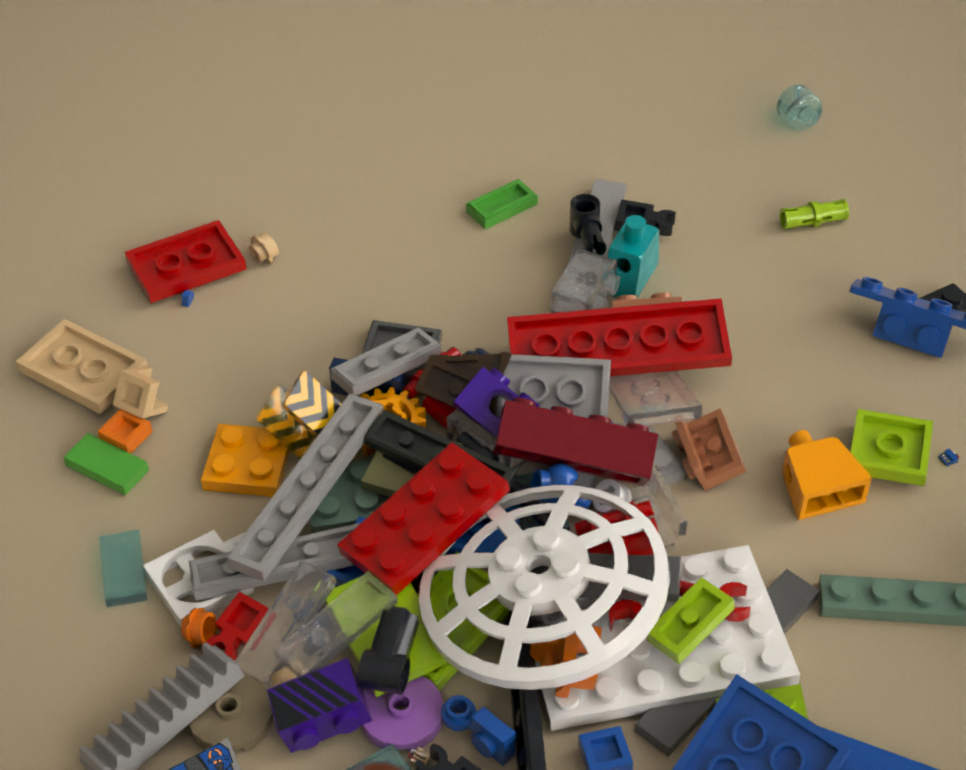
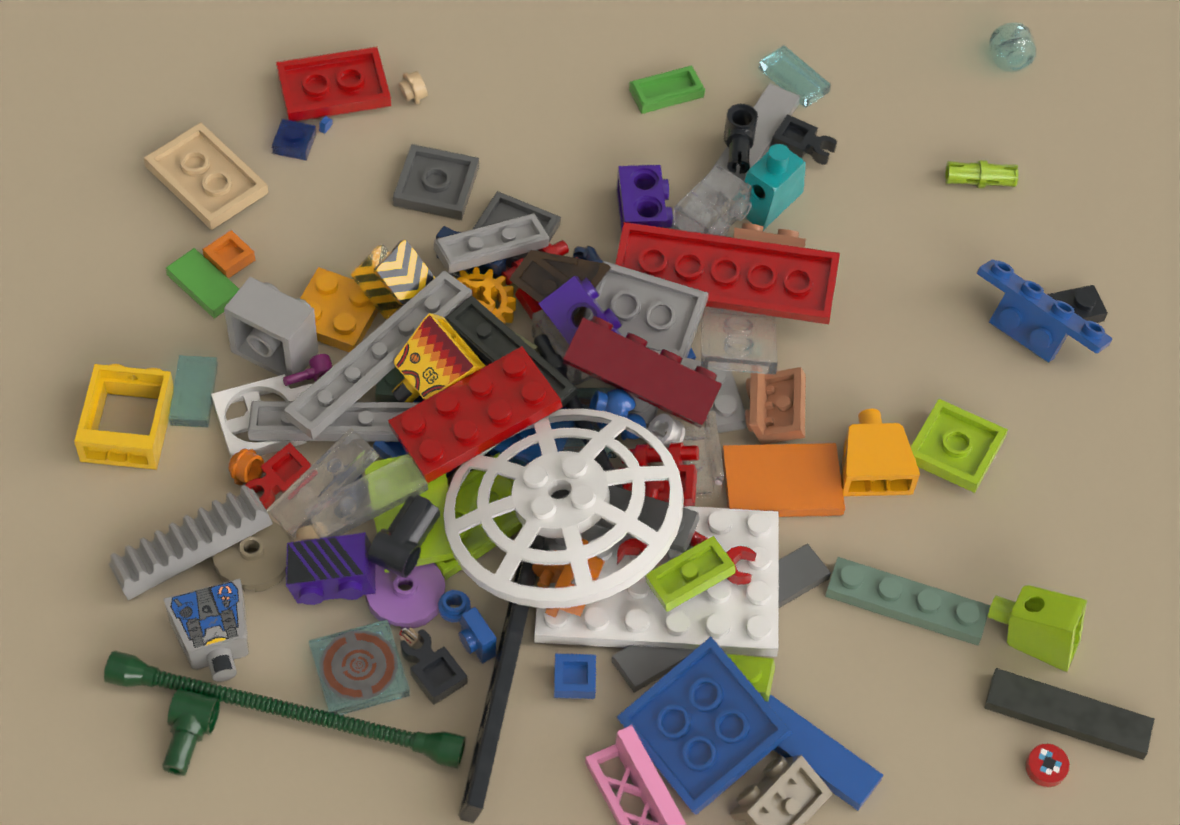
camera: 10 degrees right, 10 degrees up
(59, 638) = (118, 447): none -> yellow window
(138, 392) = (249, 219): tan panel -> none
(160, 317) = (294, 139): none -> clear blue plate
(190, 487) = (271, 328): none -> light grey brick
(246, 515) = (318, 365): none -> magenta hand
(310, 325) = (436, 182): none -> dark grey tile
(364, 478) = (433, 360): none -> torso
(512, 293) = (643, 196): none -> dark purple brick
(612, 167) = (794, 75): none -> clear light blue tile
(741, 514) = (784, 479): none -> orange tile
(949, 457) = (1013, 468): blue piece -> none

